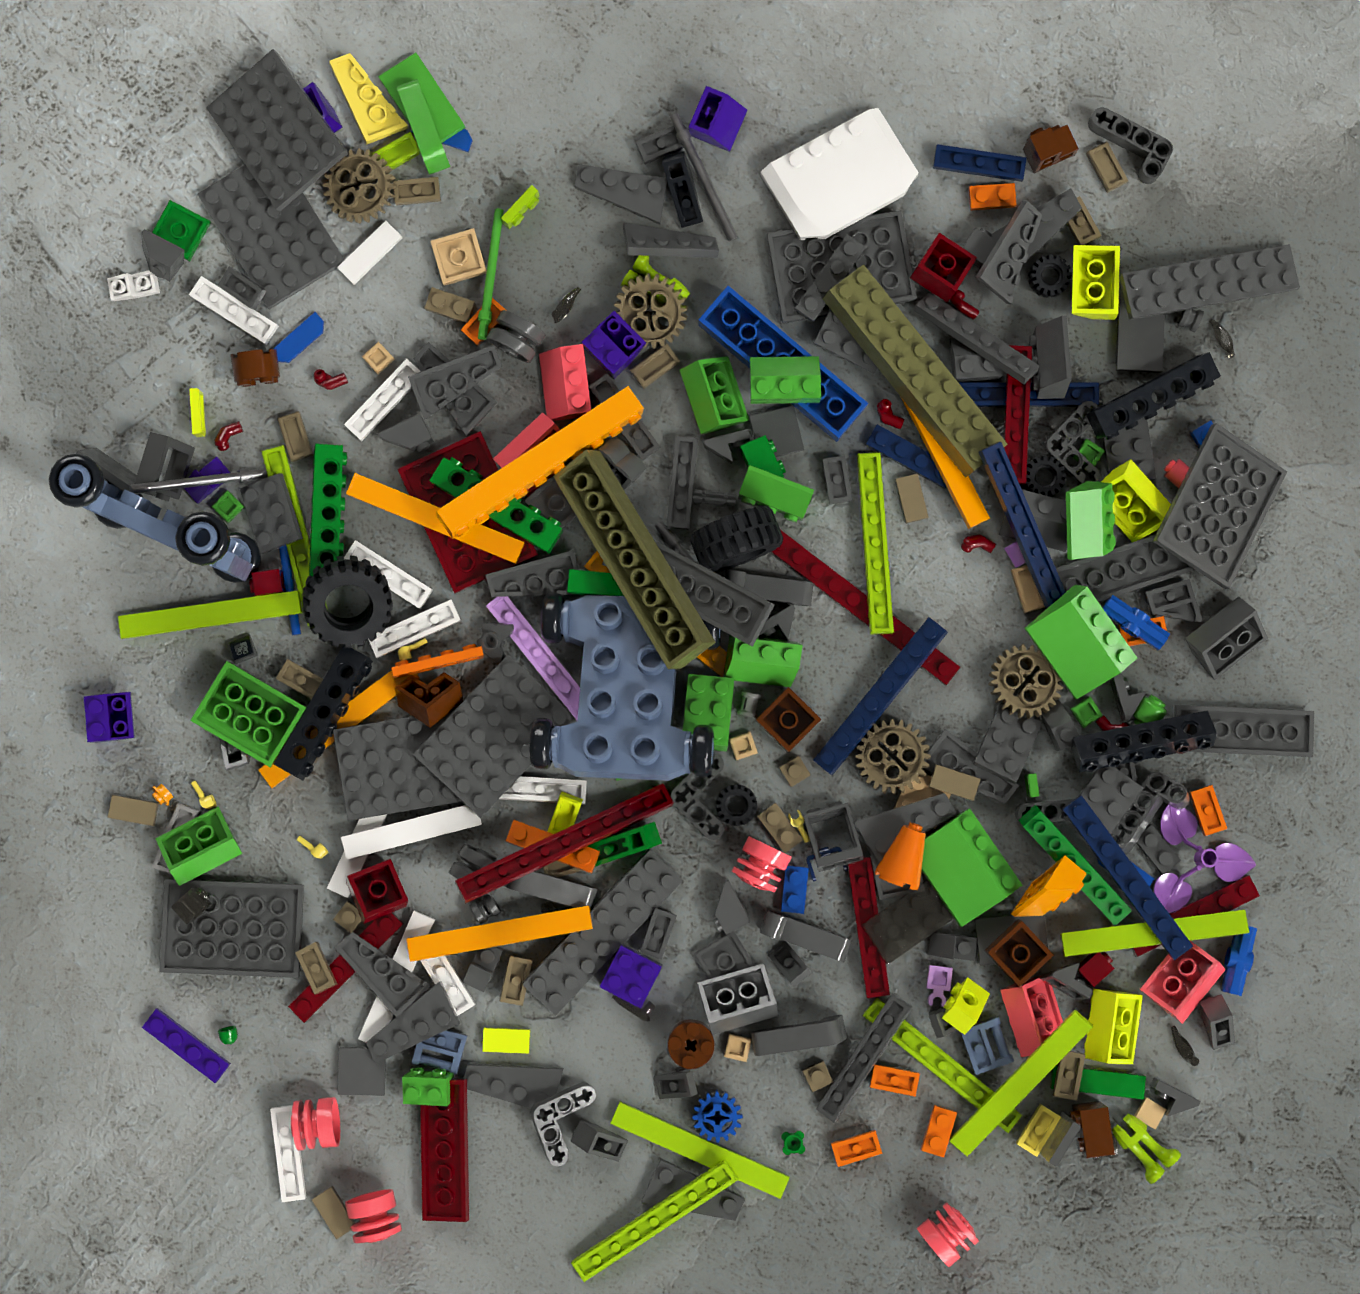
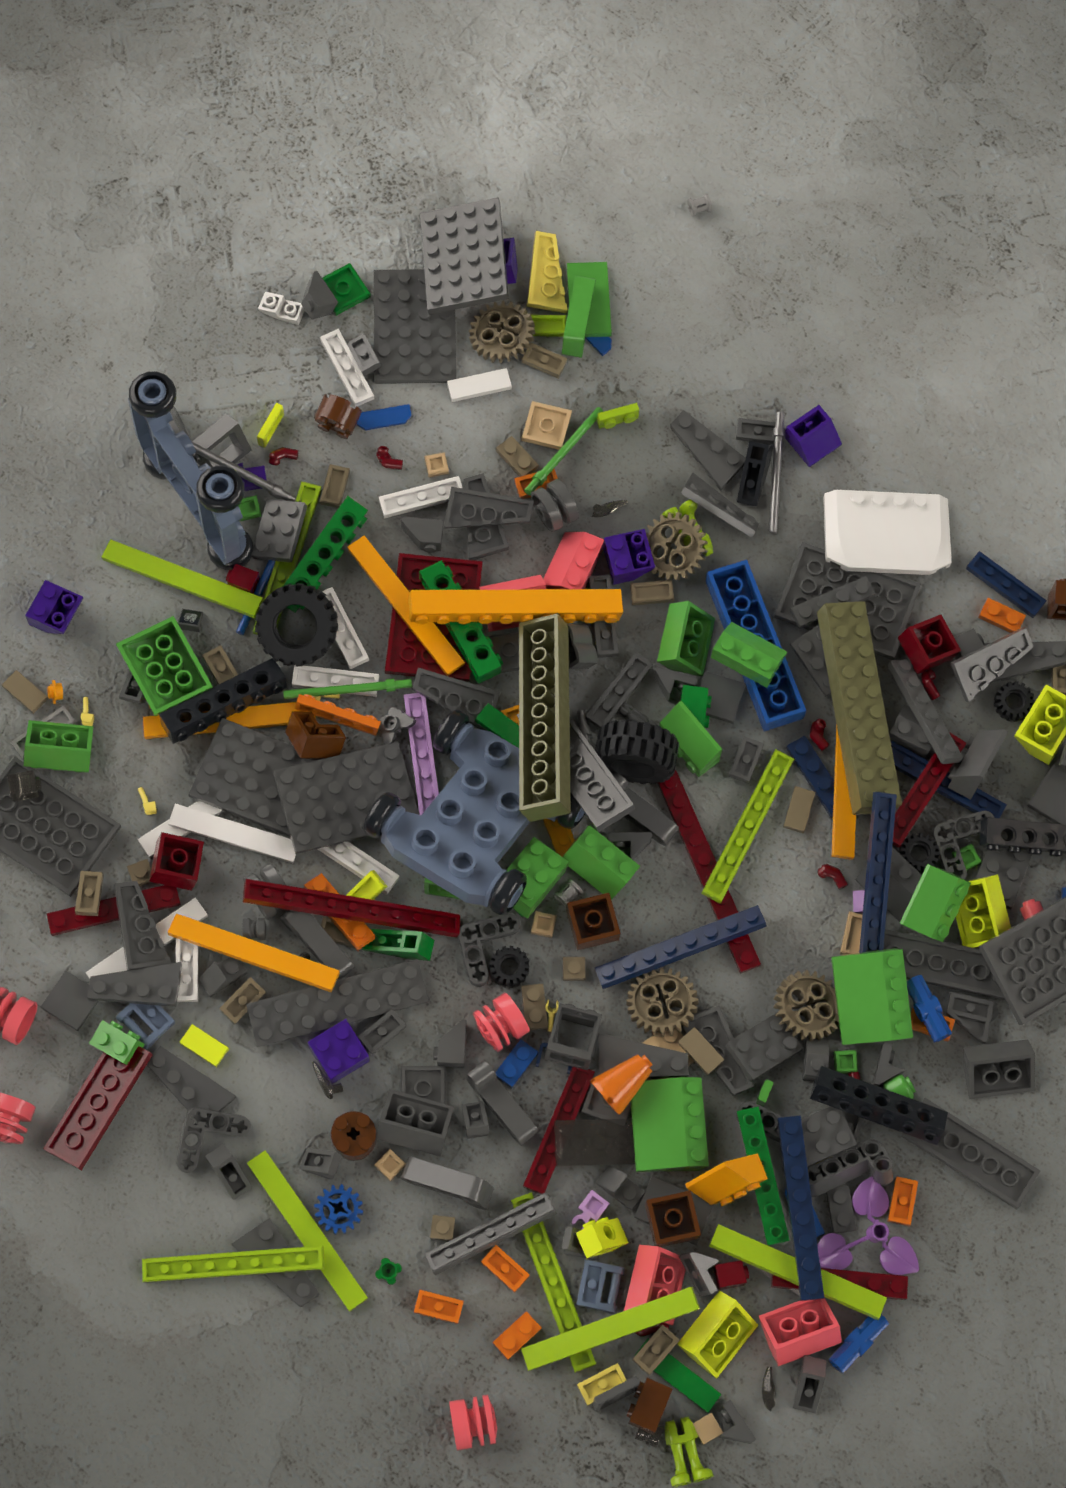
camera: 25 degrees right, 15 degrees down
(468, 605) = (389, 685): none -> bright green bar

